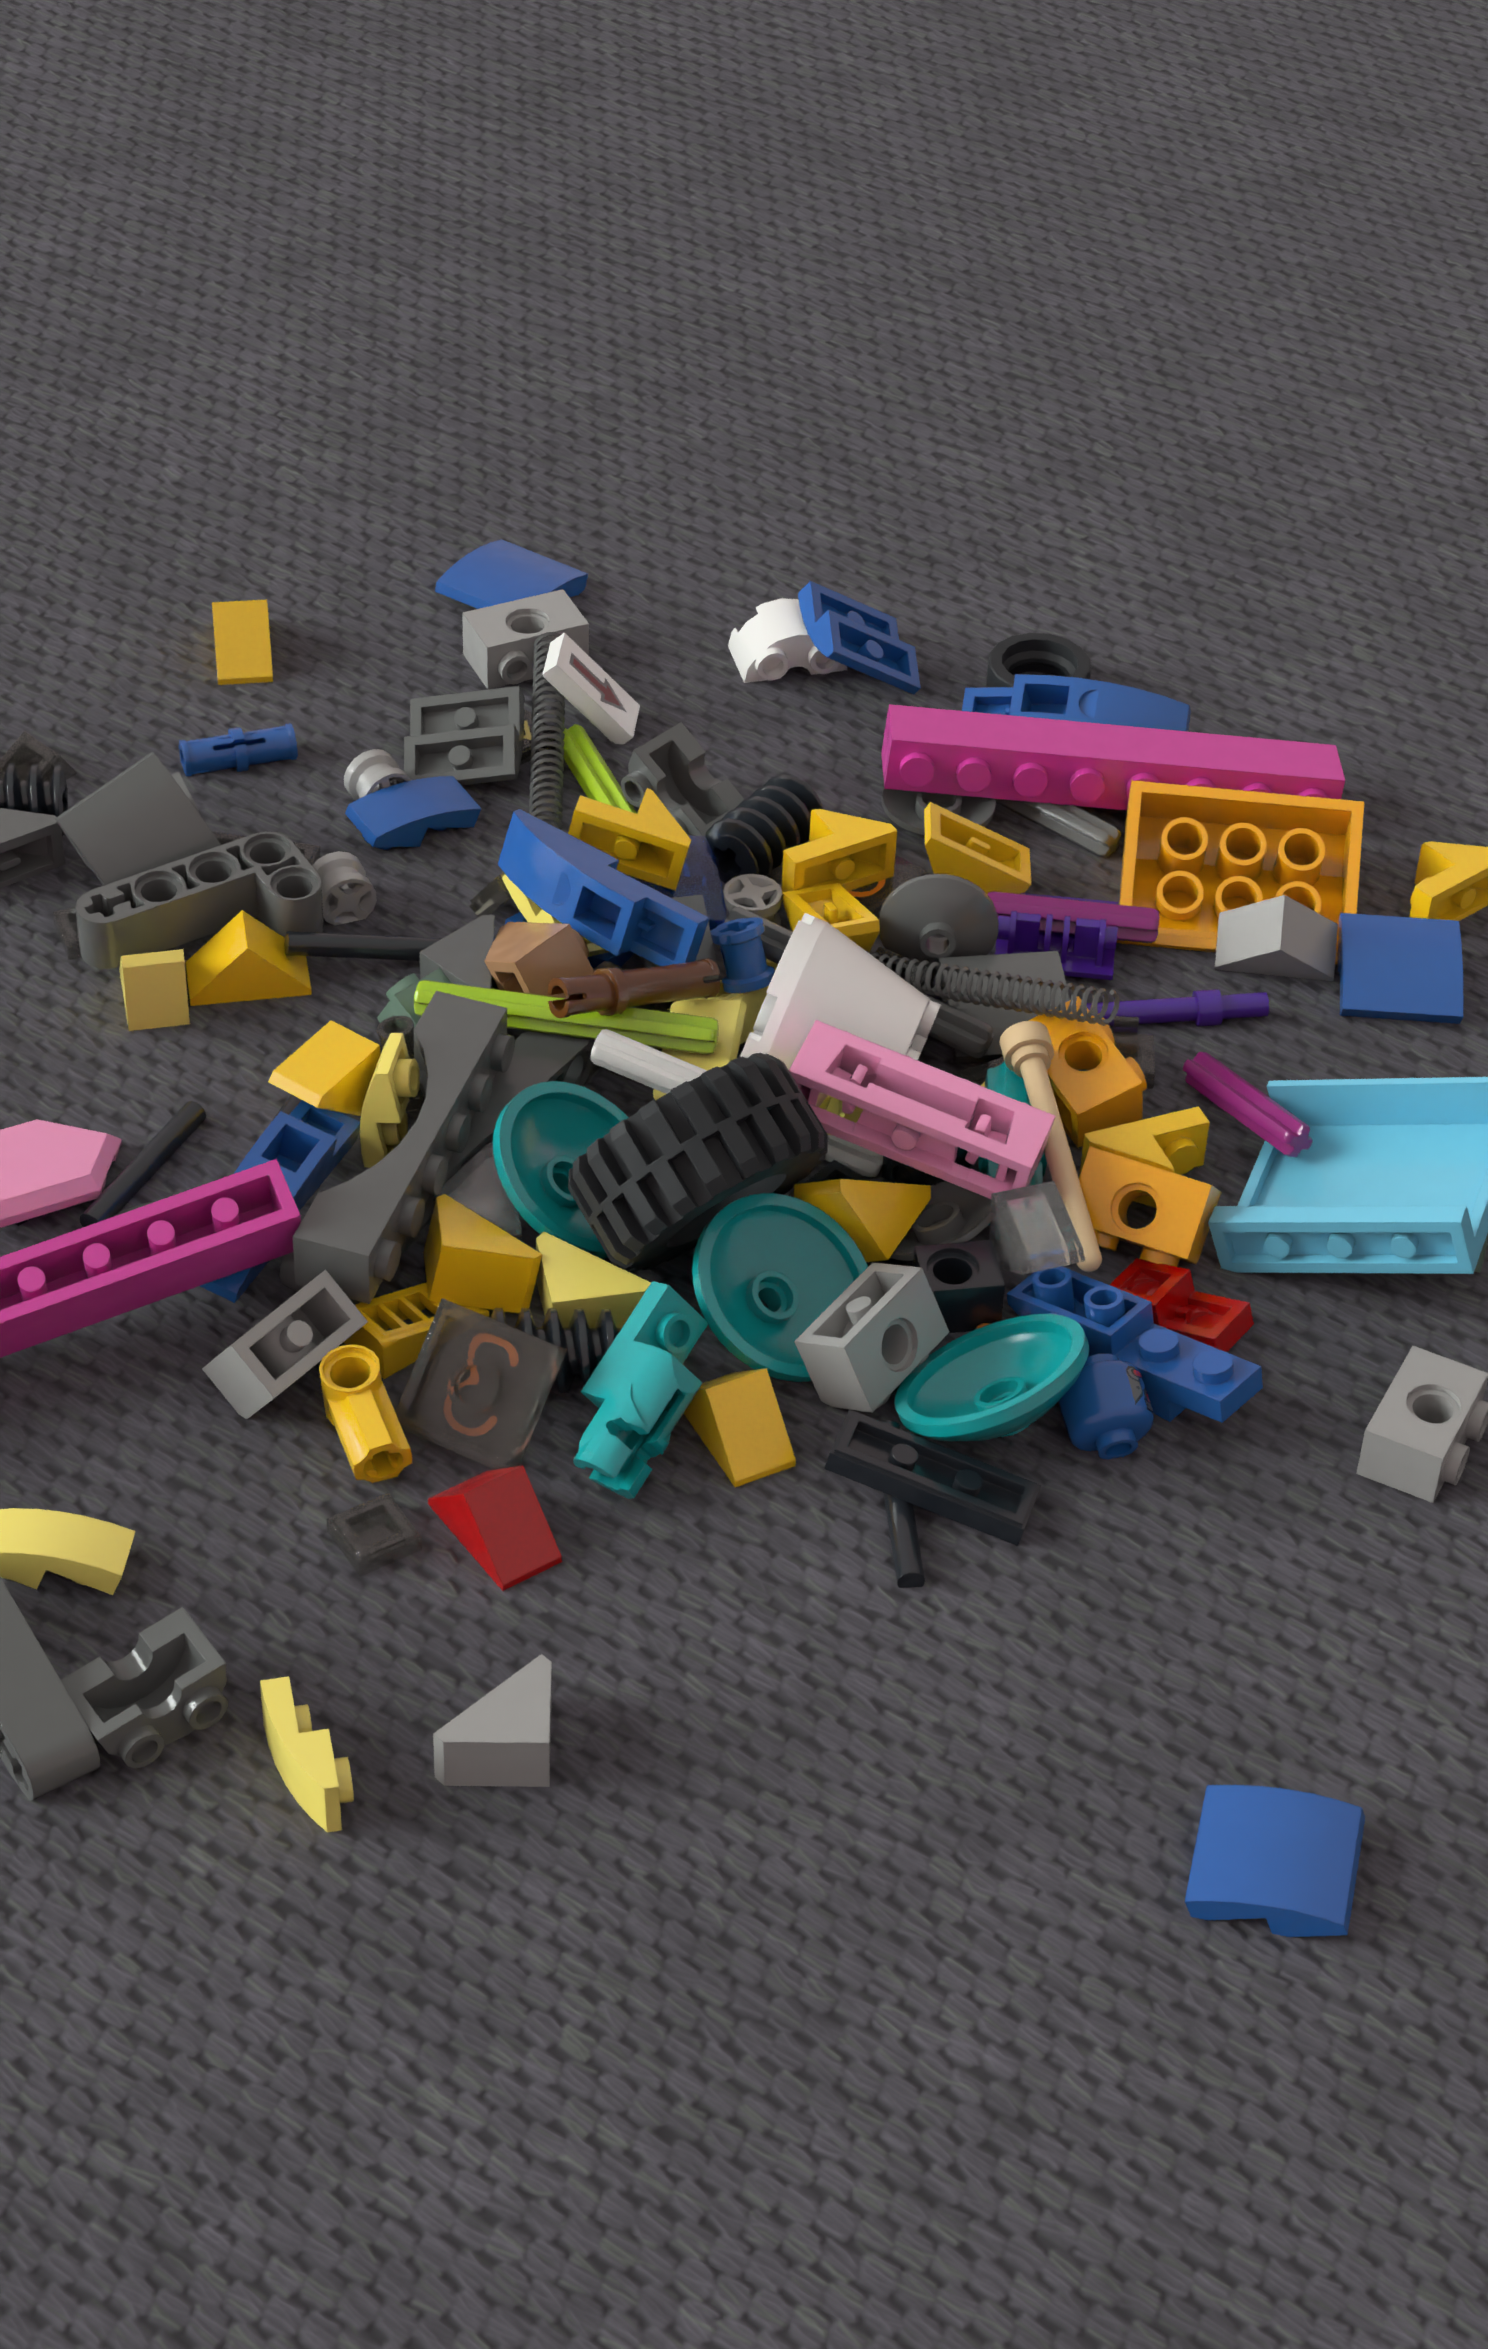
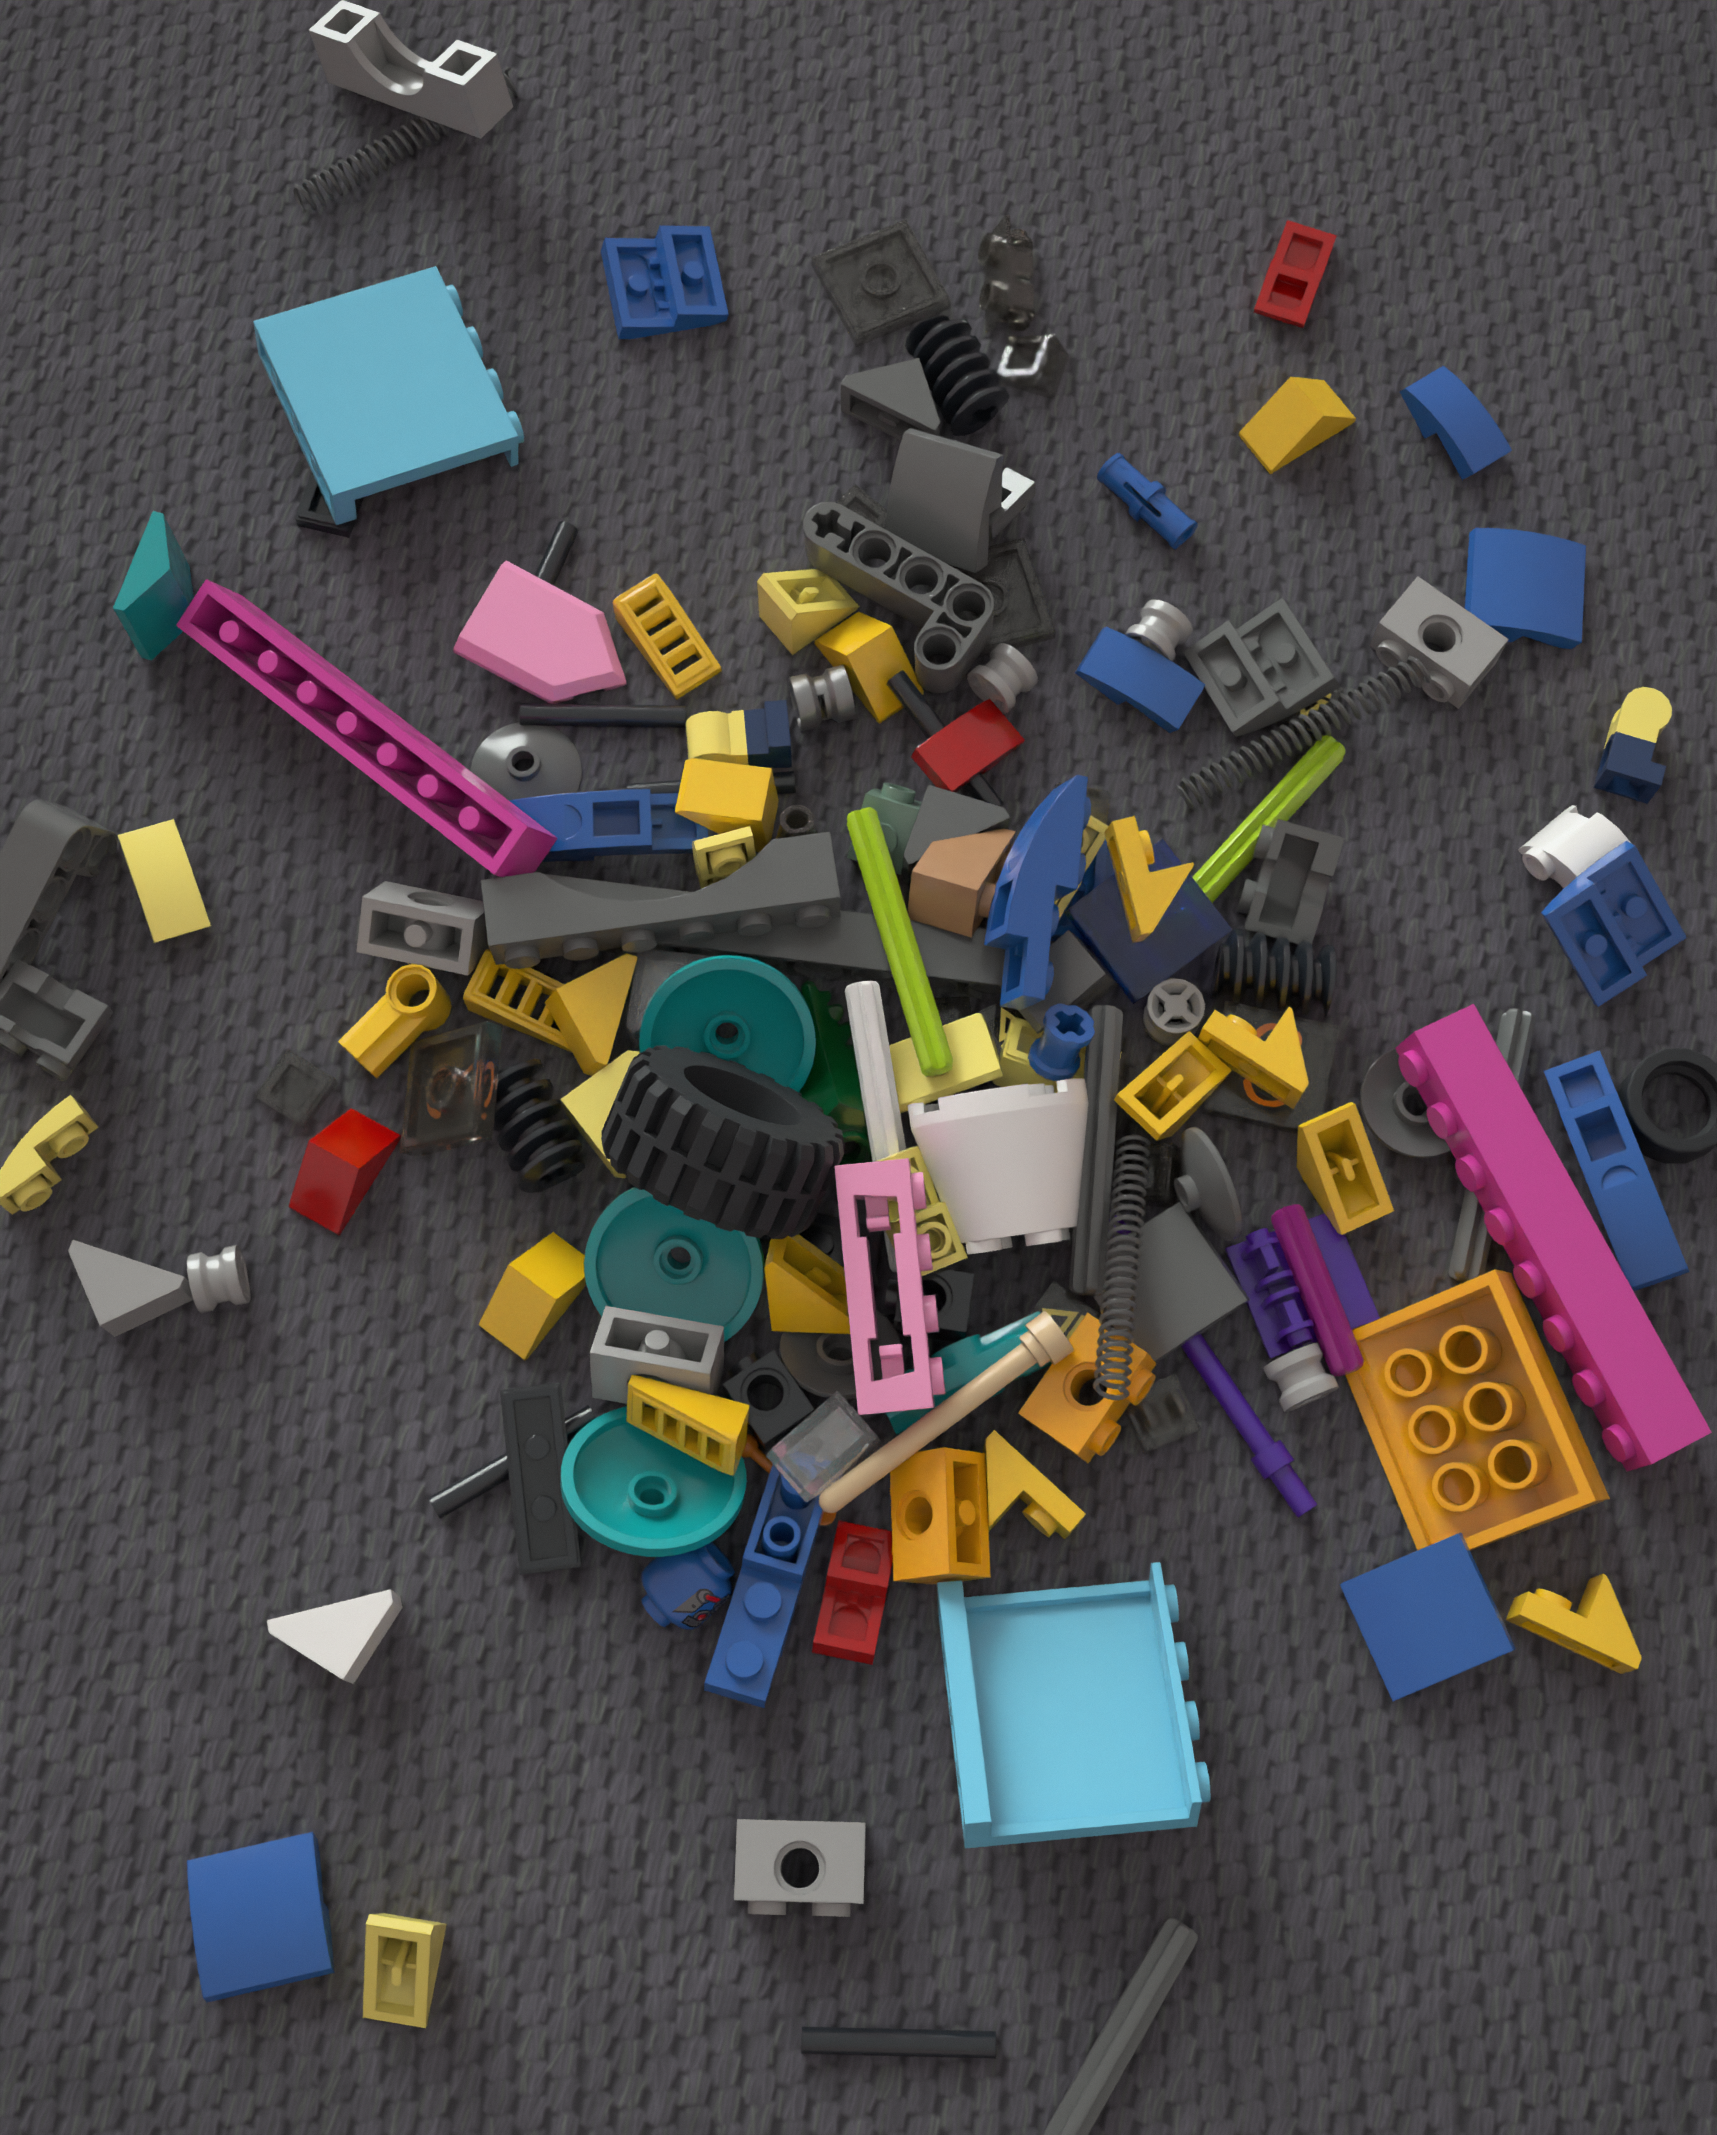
camera: 65 degrees right, 30 degrees up
(78, 1091) = (641, 599): none -> yellow slope
(93, 593) = (1295, 274): none -> red slope
(242, 1084) = (742, 736): none -> leg
(261, 1004) = (834, 694): none -> flat silver wheel
(309, 556) = (1466, 429): none -> blue slope
(394, 932) = (967, 747): none -> red slope
(561, 1639) = (218, 1278): none -> light grey wheel
(591, 690) = (1380, 735): white tile -> none
(614, 990) = (916, 967): reddish brown pin -> none
(640, 1390) = (499, 1213): teal plate -> none
(707, 581) = (1630, 746): none -> leg
(989, 1314) = (690, 1421): none -> yellow slope
(1014, 1685) = (341, 1633): none -> white slope
(1145, 957) = (1301, 1377): none -> light grey wheel
(1247, 1104) = (1138, 1551): magenta axle -> none
(1276, 940) = (1392, 1490): light grey slope -> none
(1382, 1749) = (400, 1968): none -> light yellow slope

